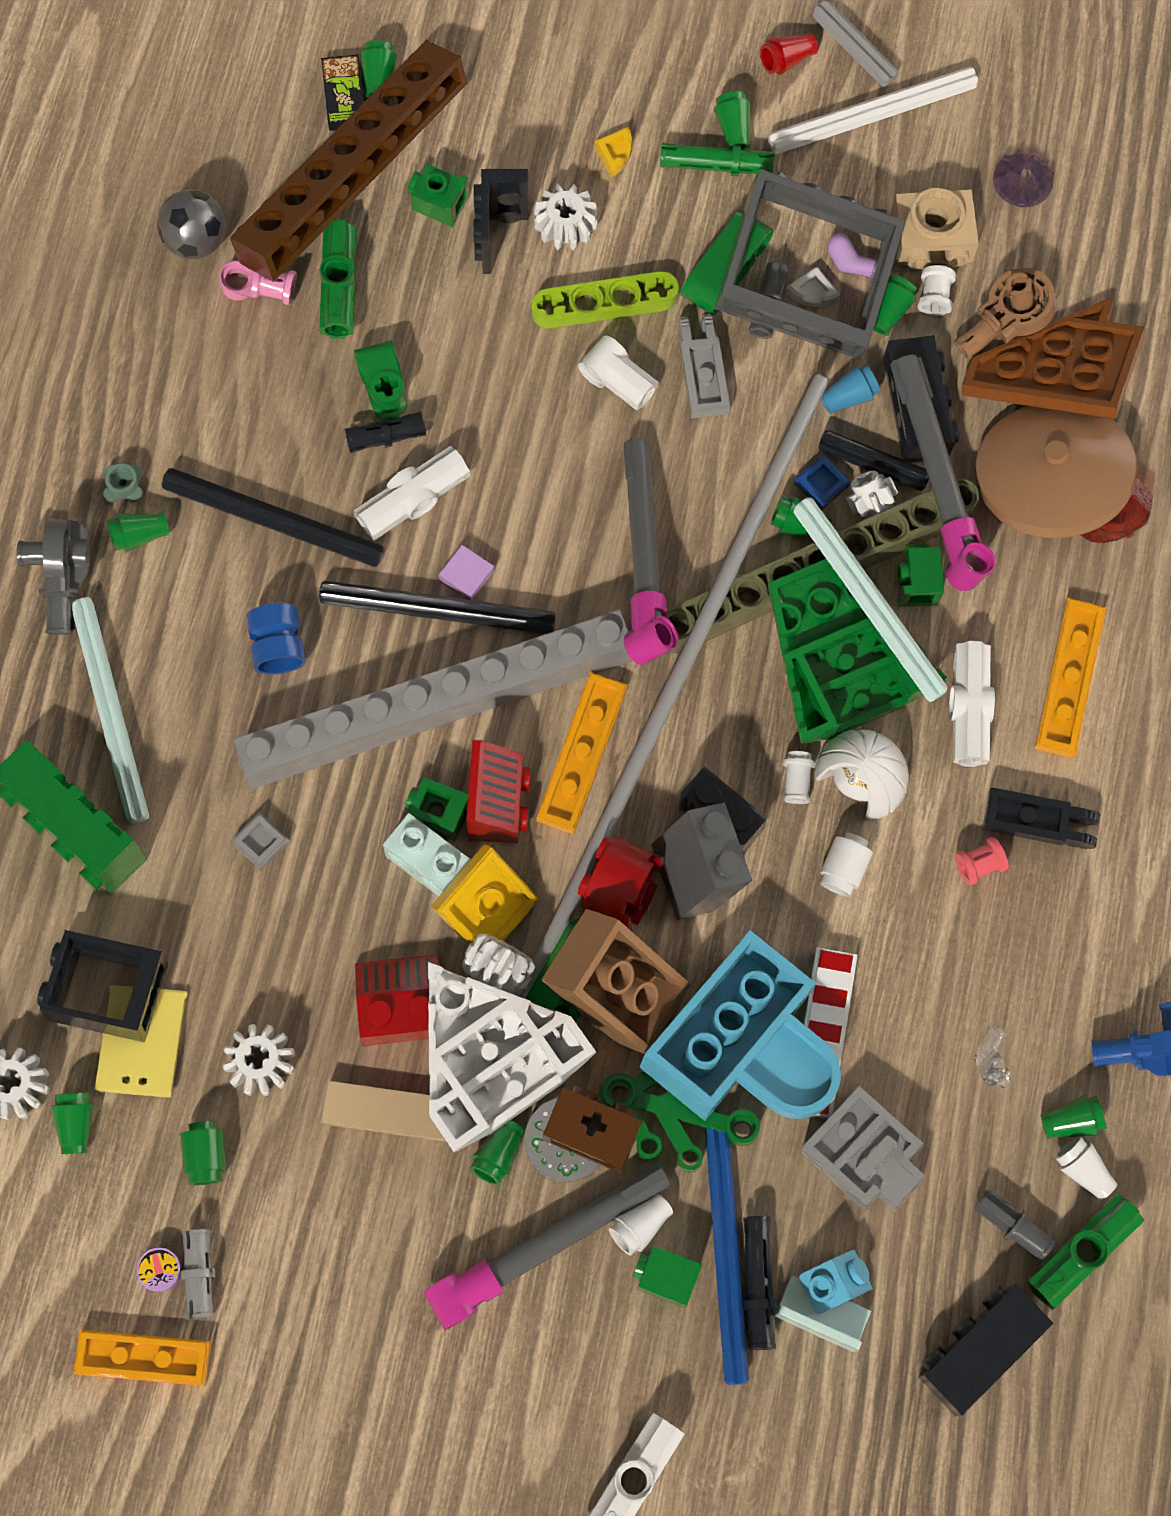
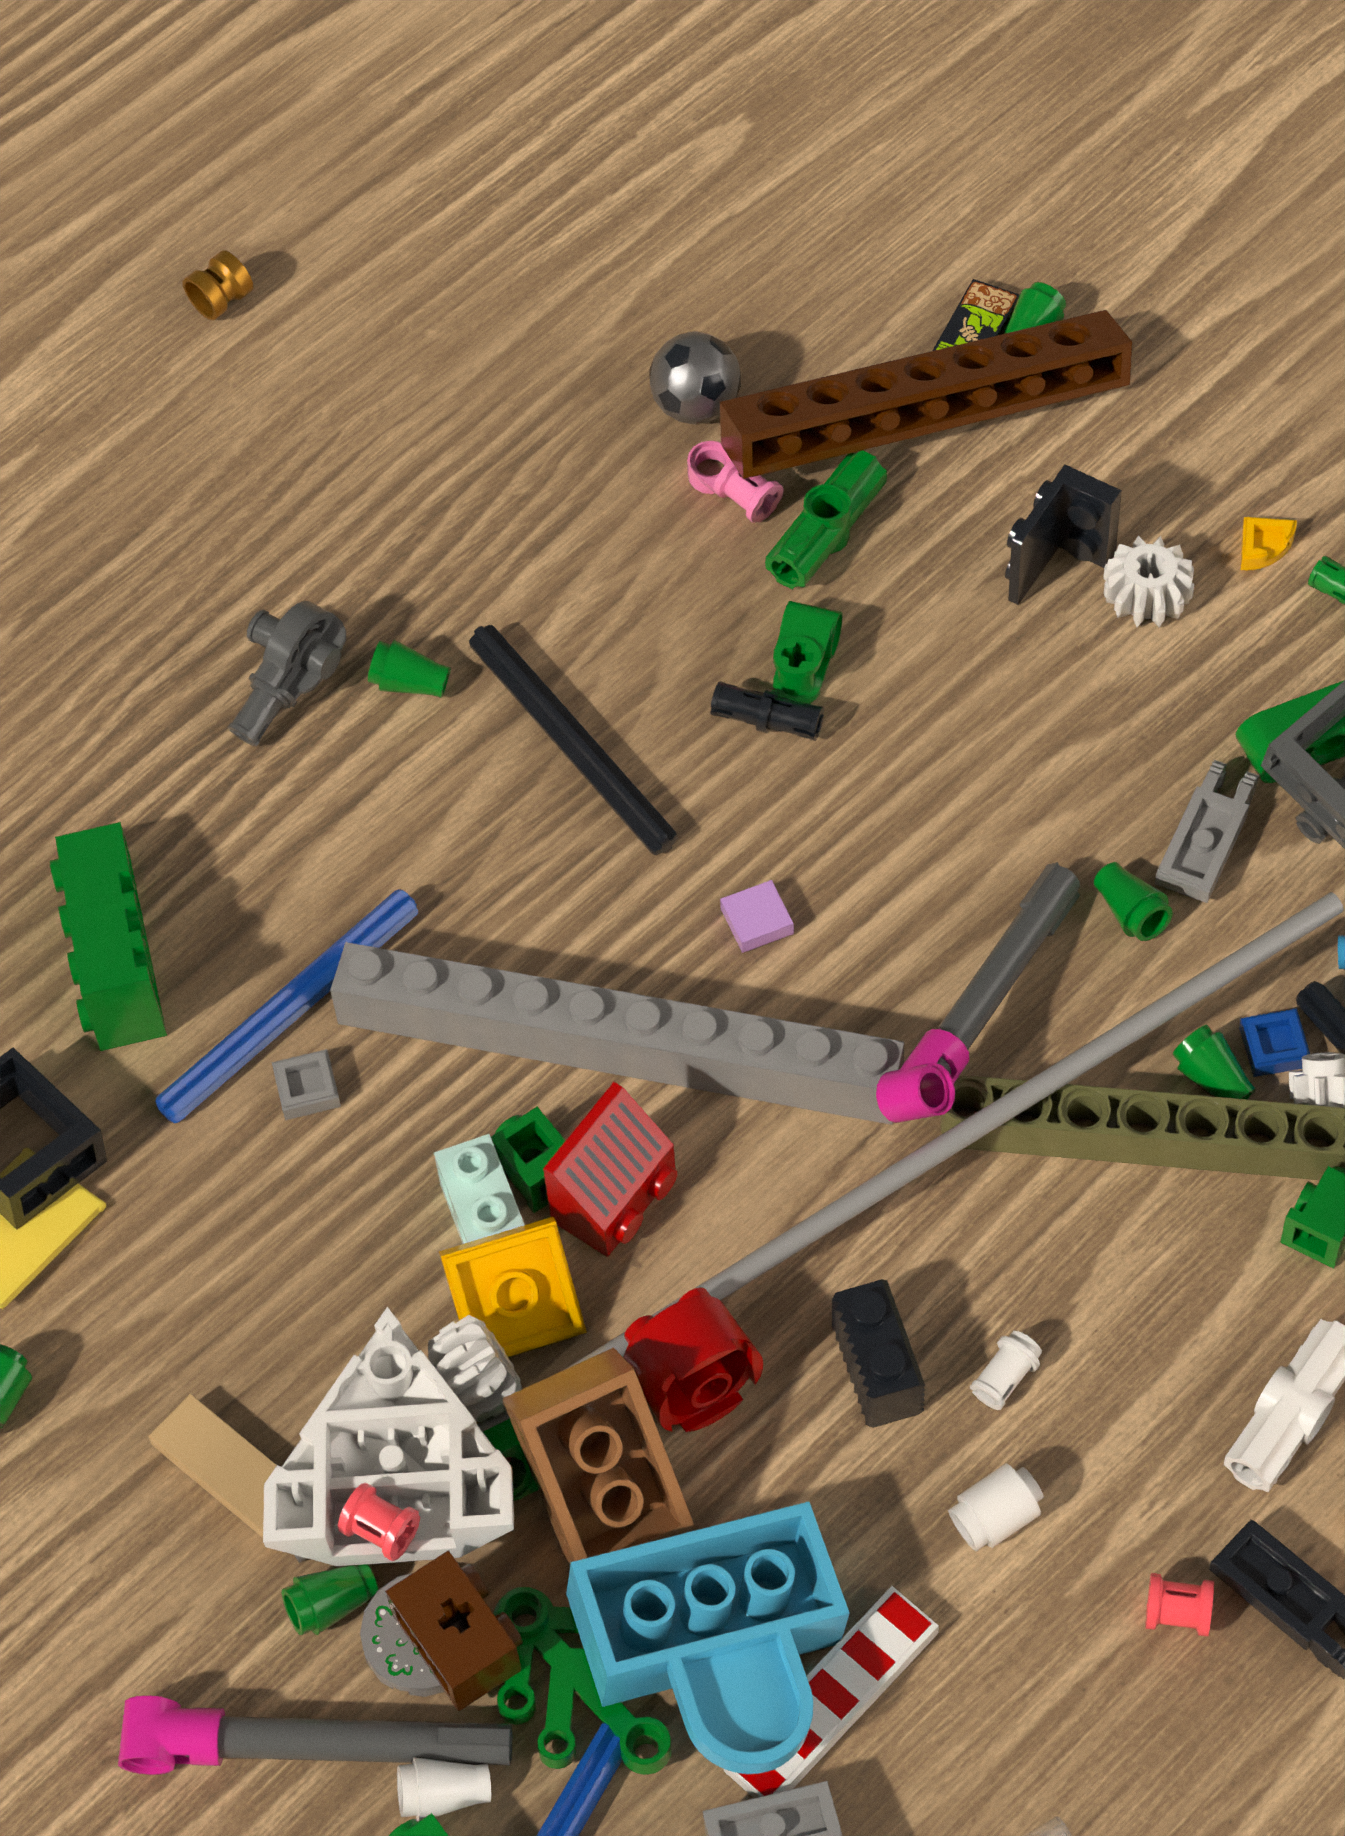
camera: 40 degrees right, 15 degrees down
(109, 710) = (239, 850): light aqua axle -> none
(115, 474) = (428, 603): sand green plate -> none
(213, 798) = (280, 1010): none -> blue axle
(246, 1053) = (144, 1318): white gear -> none
(275, 636) = (478, 866): blue wheel -> none
(393, 999) = (315, 1341): red slope -> none
(412, 493) = (751, 792): white piece -> none
(437, 607) = (693, 934): black axle -> none
(445, 201) = (1007, 483): green brick -> none
(510, 1095) = (378, 1521): none -> coral bush
(582, 753) = (755, 1194): light orange tile -> none
(603, 293) = (1140, 691): lime beam -> none
(610, 366) = (1092, 776): white piece -> none
(688, 438) = (1135, 904): none -> green cone
(701, 861) = (803, 1386): dark grey brick -> none
(834, 656) = (1158, 1248): green wedge -> none
(866, 769) = (1105, 1409): white hair -> none
(870, 599) = (1228, 1195): light aqua axle -> none

